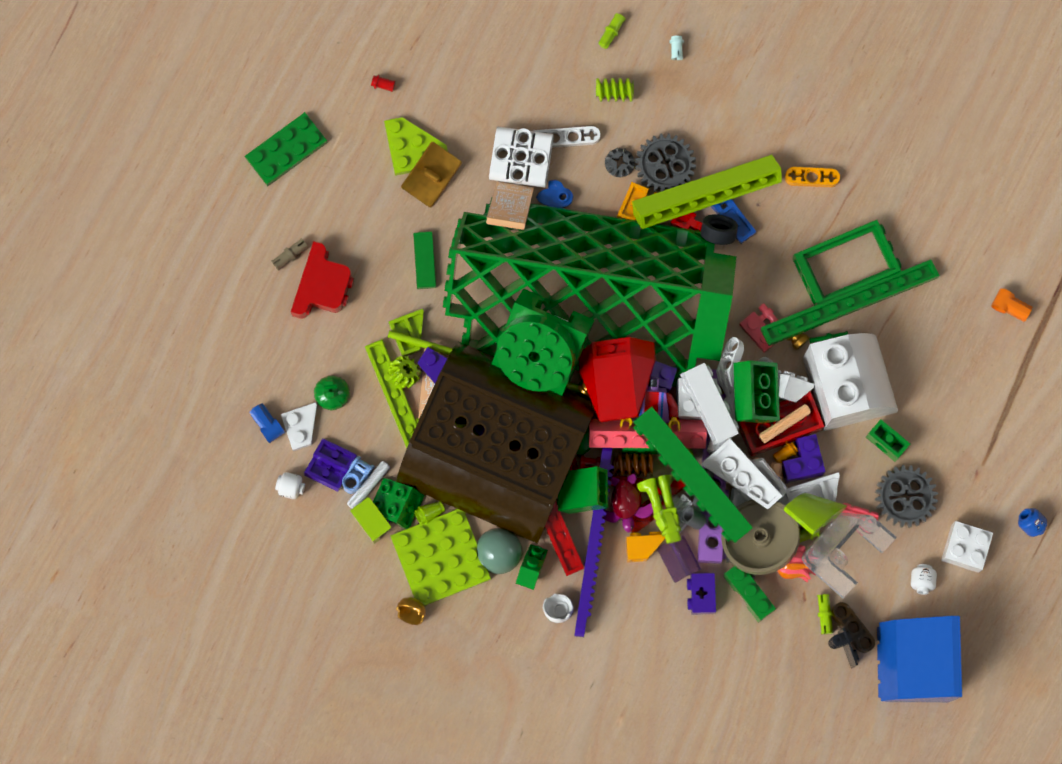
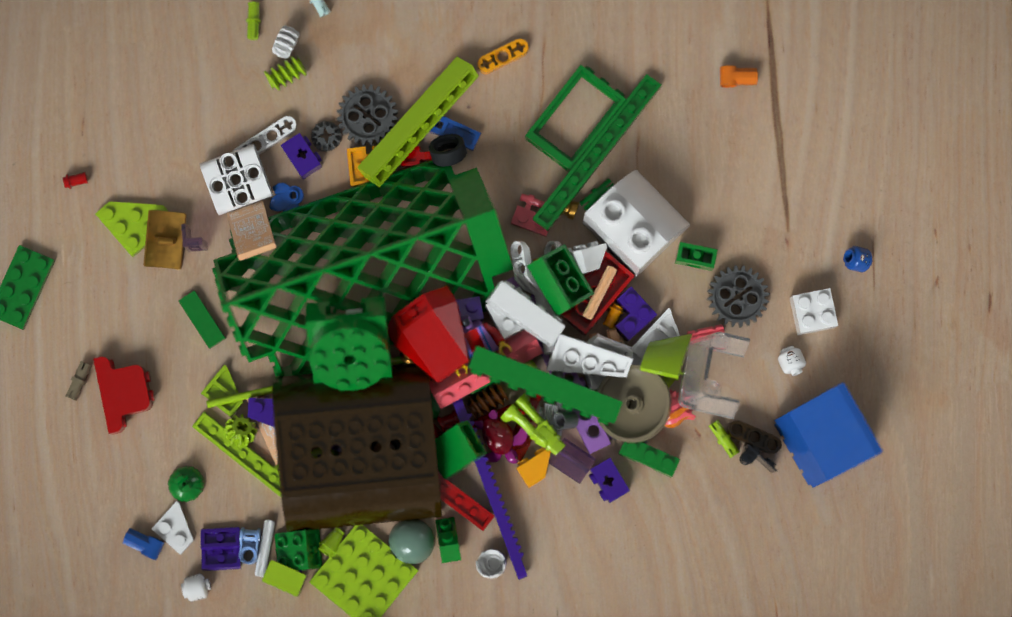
camera: 30 degrees left, 5 degrees up
(452, 190) = (192, 244): none -> panel
(589, 178) = (299, 144): none -> dark purple brick
(629, 63) = (285, 42): none -> white gear

